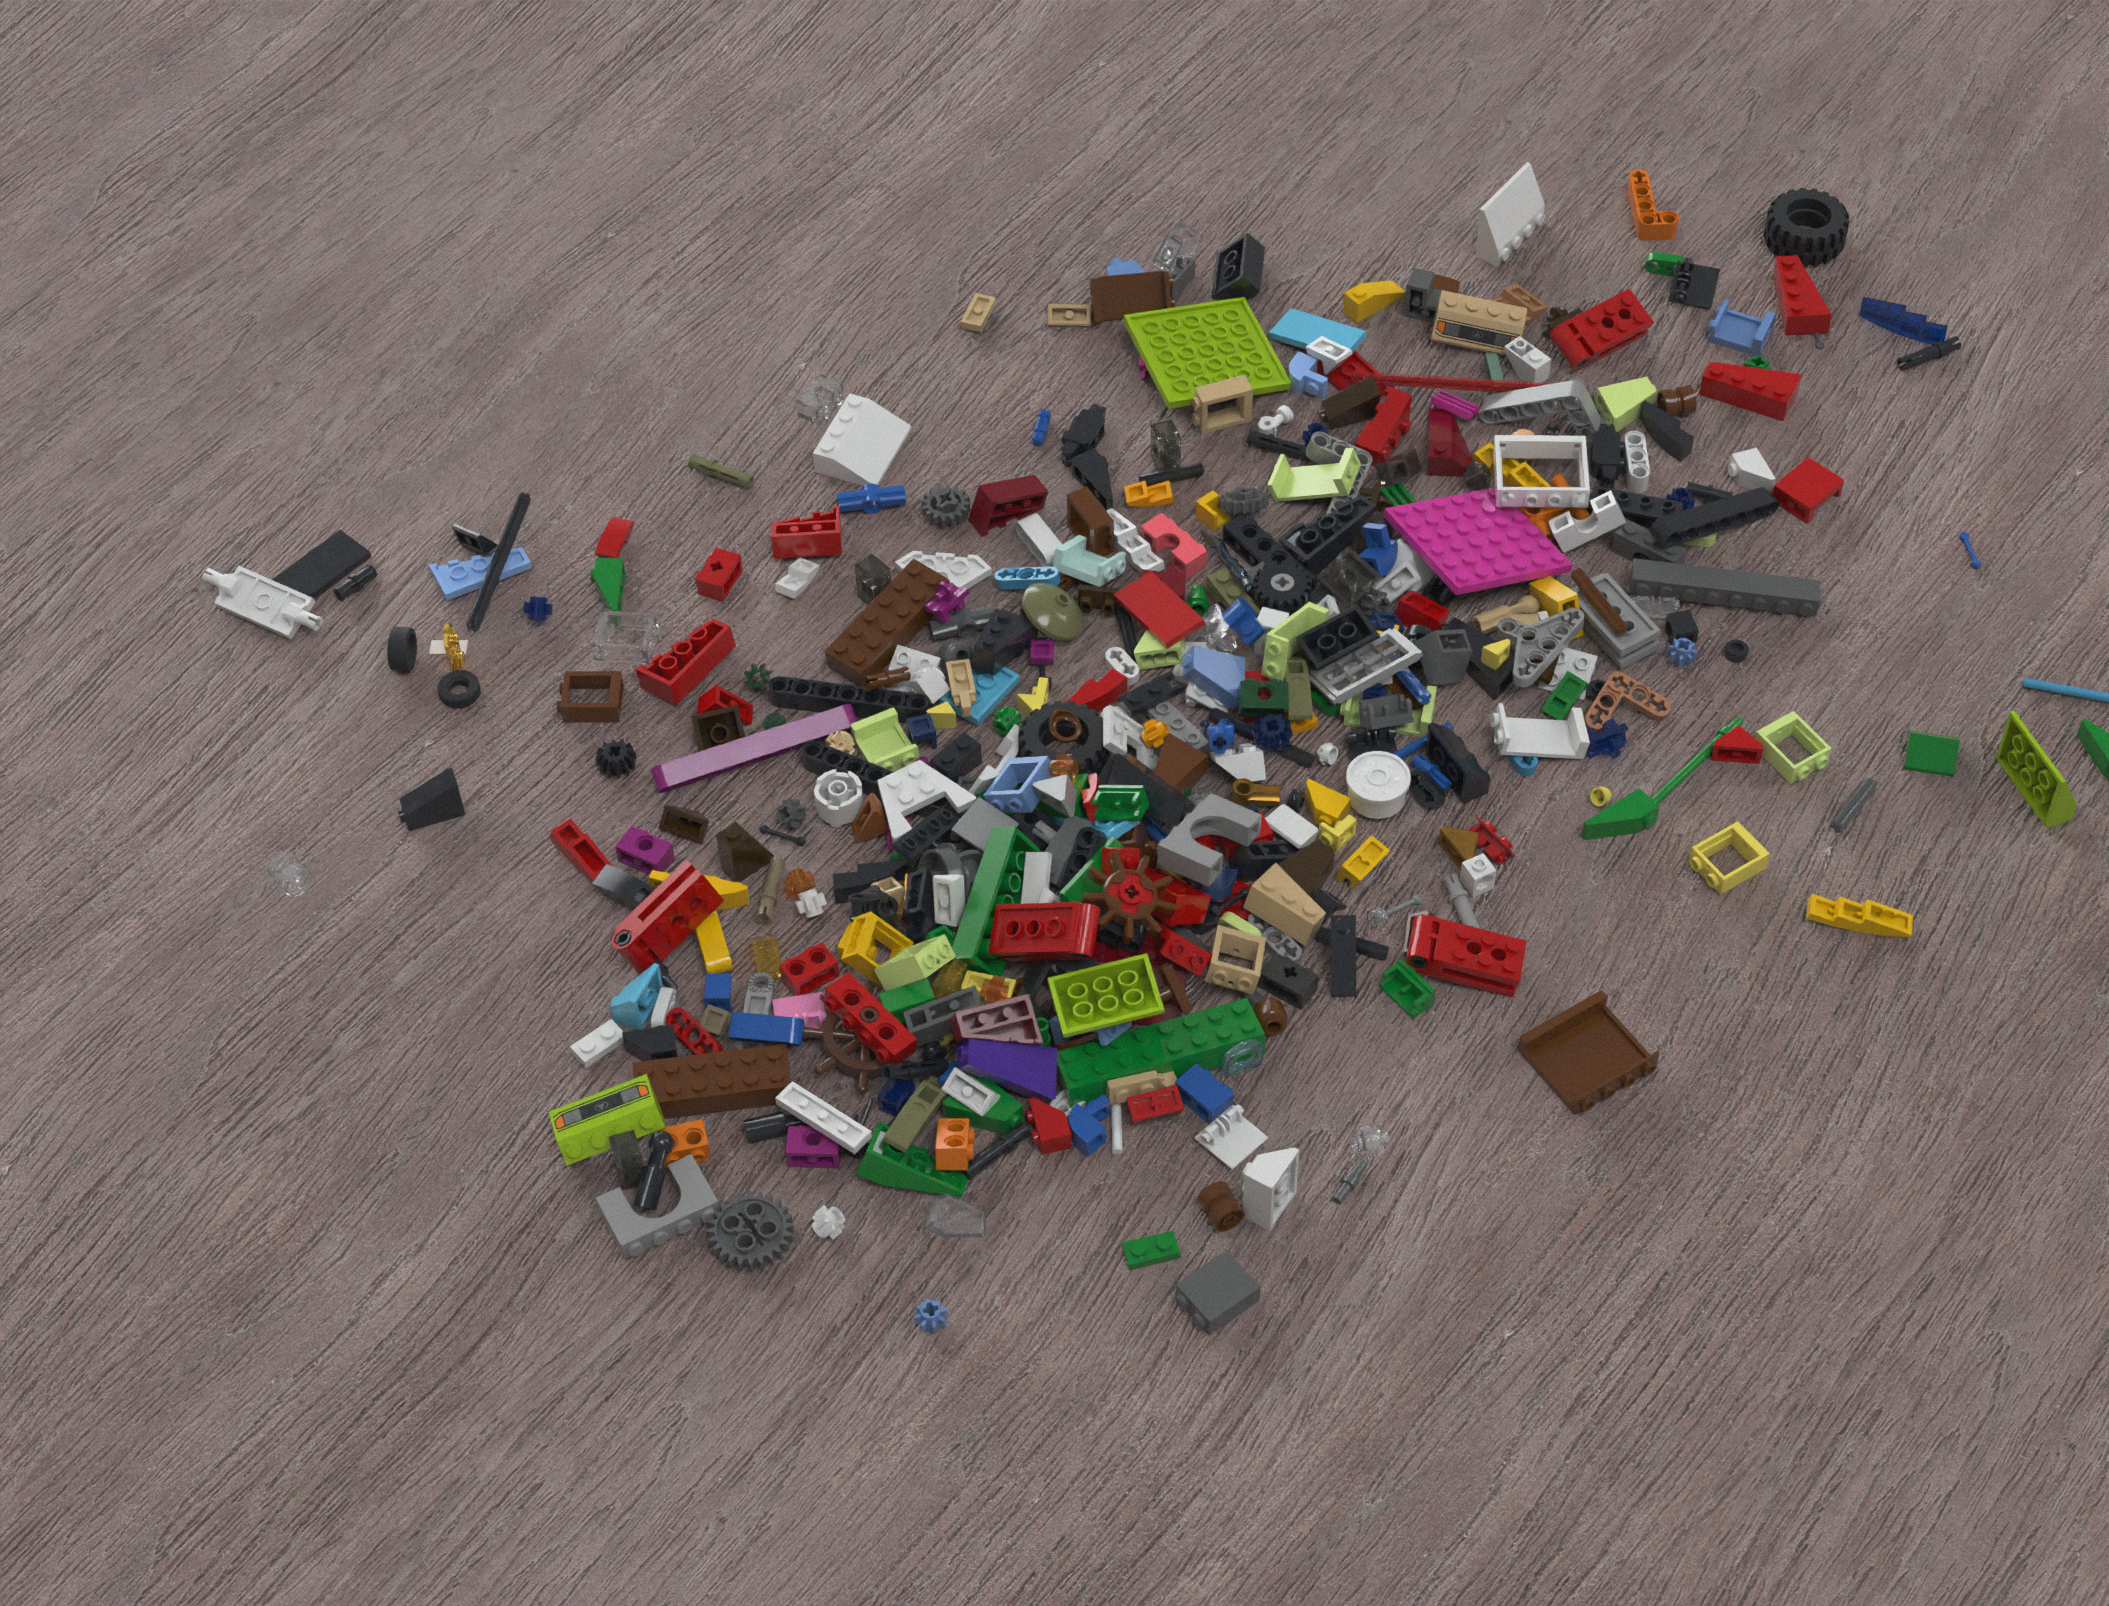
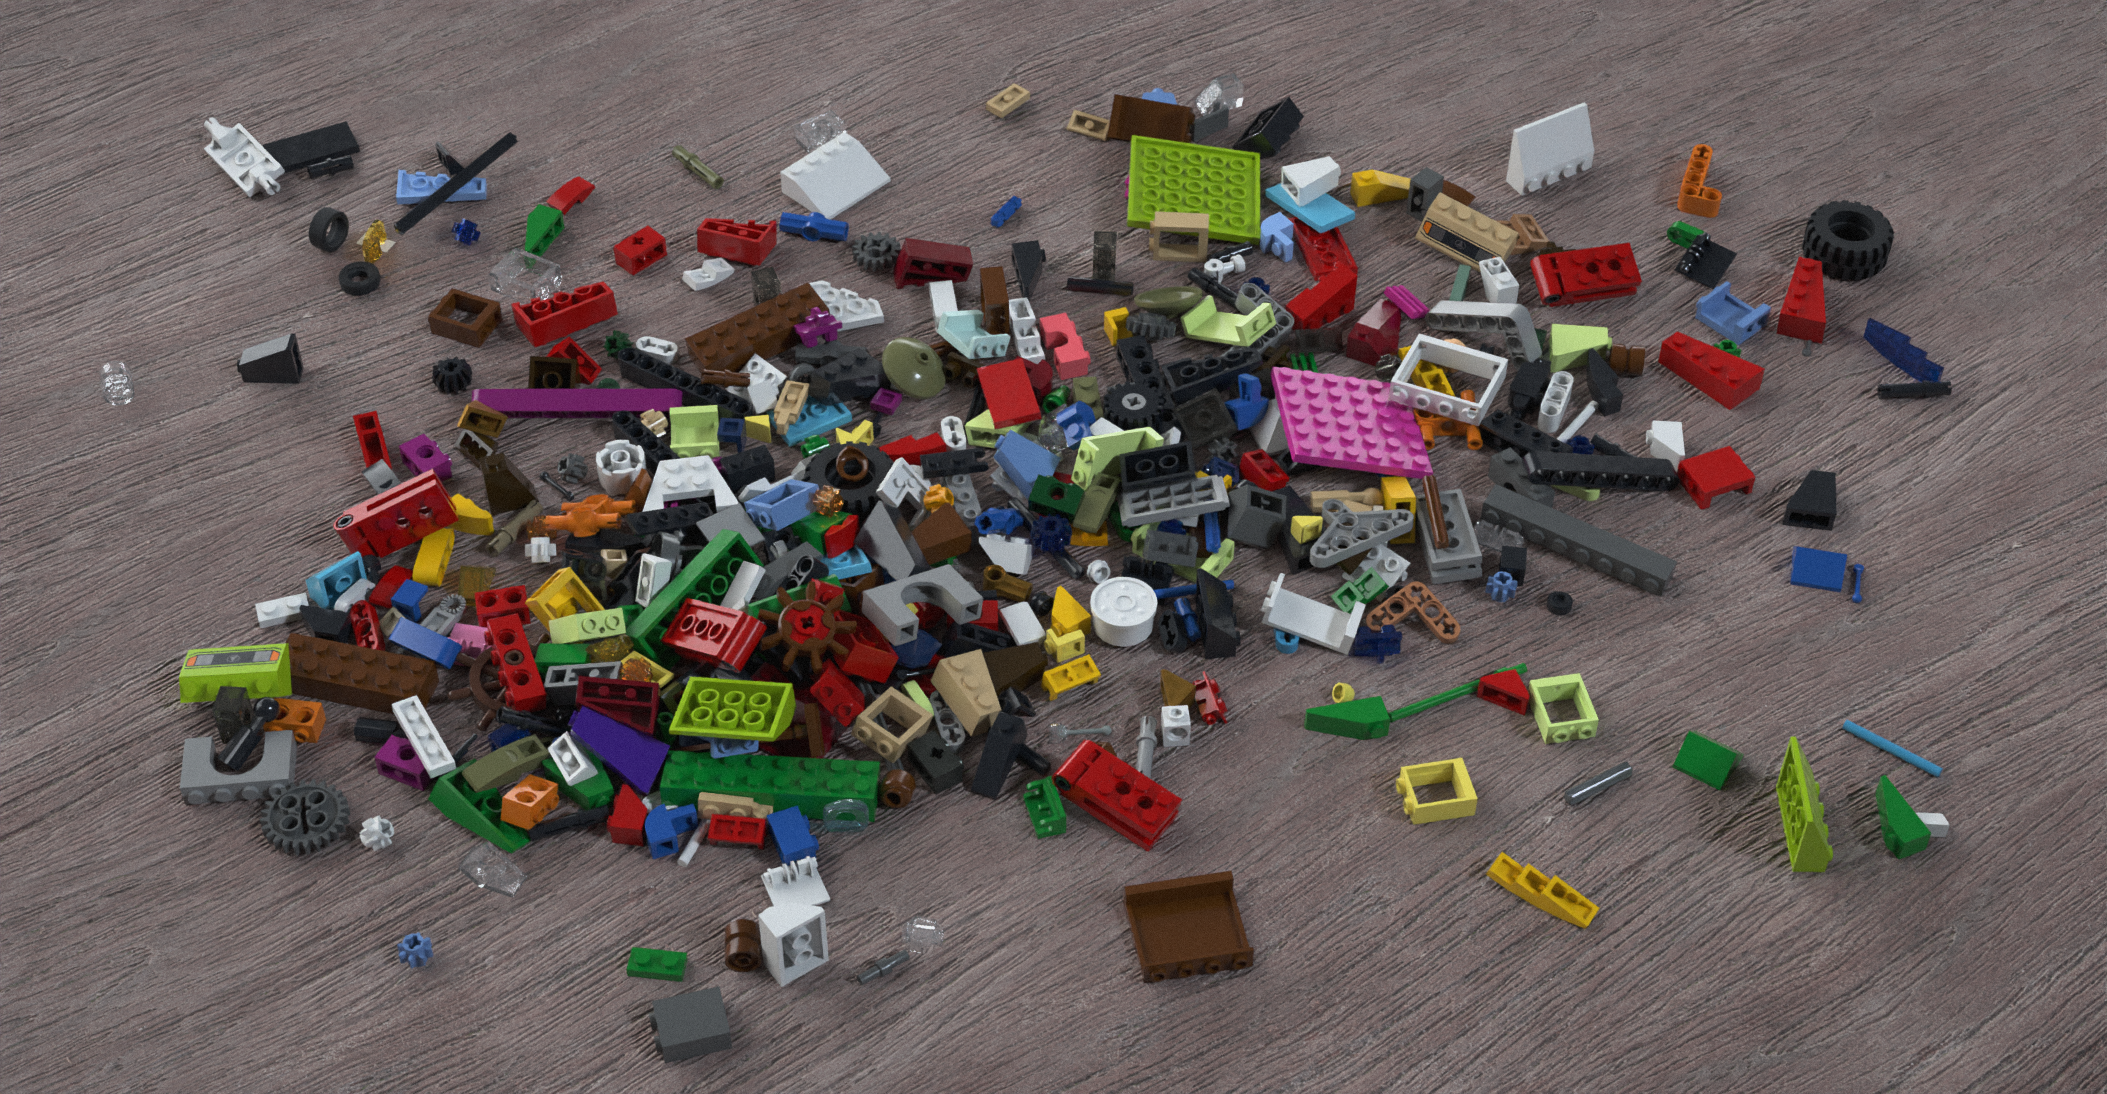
camera: 20 degrees right, 5 degrees down
(677, 793) = (482, 419): none -> pearl gold slope
(690, 985) = (389, 585): none -> red slope
(796, 668) = (658, 348): none -> white beam
(842, 849) = (590, 515): none -> orange piece
(1015, 577) = (897, 328): dark azure beam -> none
(1058, 794) = (807, 519): light grey slope -> none
(1084, 434) = (1042, 225): black hinge -> none
(1120, 803) = (861, 547): green hinge -> none
(1147, 496) = (1065, 296): light orange slope -> none
(1231, 563) = (1103, 375): black sword -> none
(1245, 469) = (1169, 300): none -> olive dish
(1271, 405) = (1229, 251): none -> black pin
(1307, 310) = (1310, 179): none -> white slope
(1329, 353) = (1307, 221): white slope -> none
(1350, 405) = (1299, 270): dark brown slope -> none
(1399, 580) = (1254, 437): white slope -> none
(1442, 383) = (1395, 275): red axle -> none
(1573, 532) = (1451, 445): white arch -> none
(1663, 473) = (1578, 421): none -> white bar
(1901, 487) = (1813, 502): none -> black slope
(1932, 547) = (1817, 569): none -> blue slope

